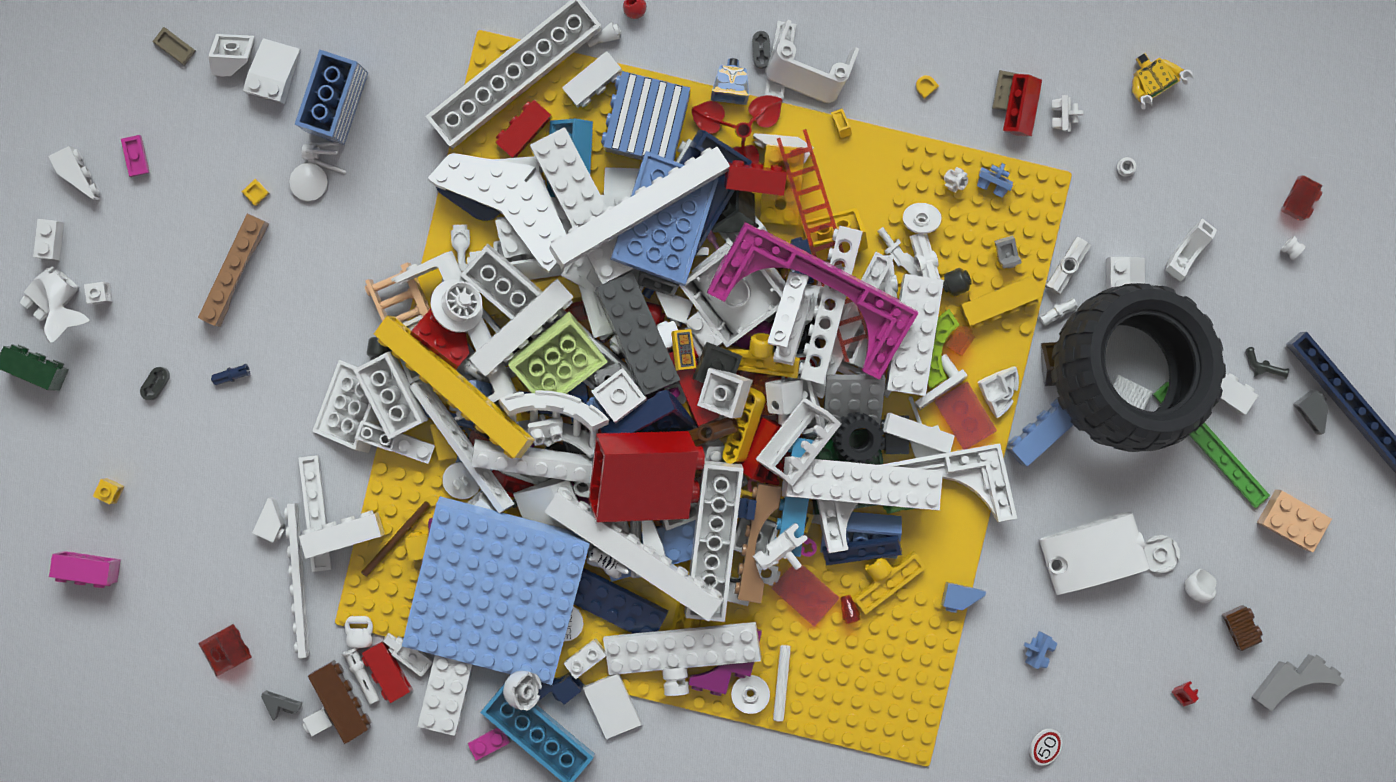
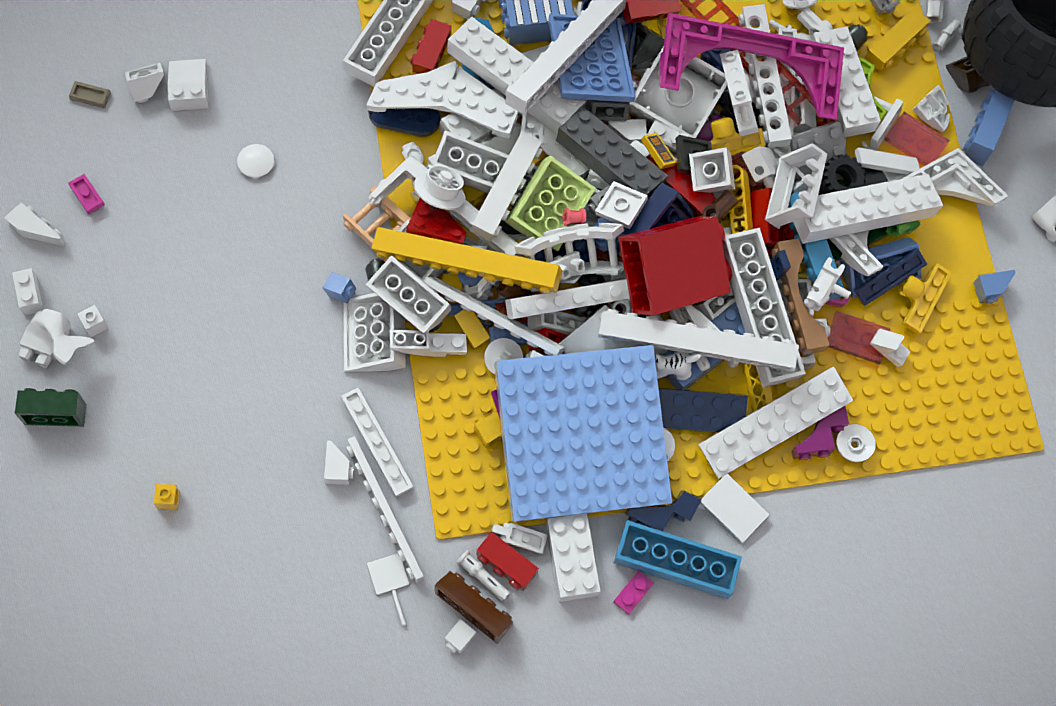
camera: 30 degrees left, 20 degrees down
(84, 569) = (169, 577): dark pink brick -> none
(150, 381) = (171, 383): pearl dark grey beam -> none
(221, 293) = (212, 269): medium nougat arch -> none
(225, 650) = (338, 605): clear red slope -> none
(230, 374) = (246, 348): dark blue axle -> none
(255, 192) = (210, 186): yellow tile -> none
(275, 701) = (409, 634): dark grey slope -> none
(279, 639) = (387, 576): none -> white piece
(312, 152) = (249, 134): white plant -> none
(331, 97) = (253, 72): medium blue brick -> none
(337, 350) = (339, 287): none -> medium blue brick
(337, 536) = (413, 442): white brick -> none
(359, 637) = (466, 539): white piece -> none
(395, 539) = (463, 434): reddish brown piece -> none
(522, 690) = (646, 513): white cylinder -> none
(571, 386) = (573, 216): none -> coral bush
(585, 658) = (690, 469): white brick -> none
(675, 681) = (781, 455): white wheel -> none
(781, 687) = (878, 424): white axle -> none
(828, 617) = (890, 346): none -> white slope
(849, 610) = (910, 337): clear red cone -> none
(960, 340) = (881, 81): clear orange brick -> none

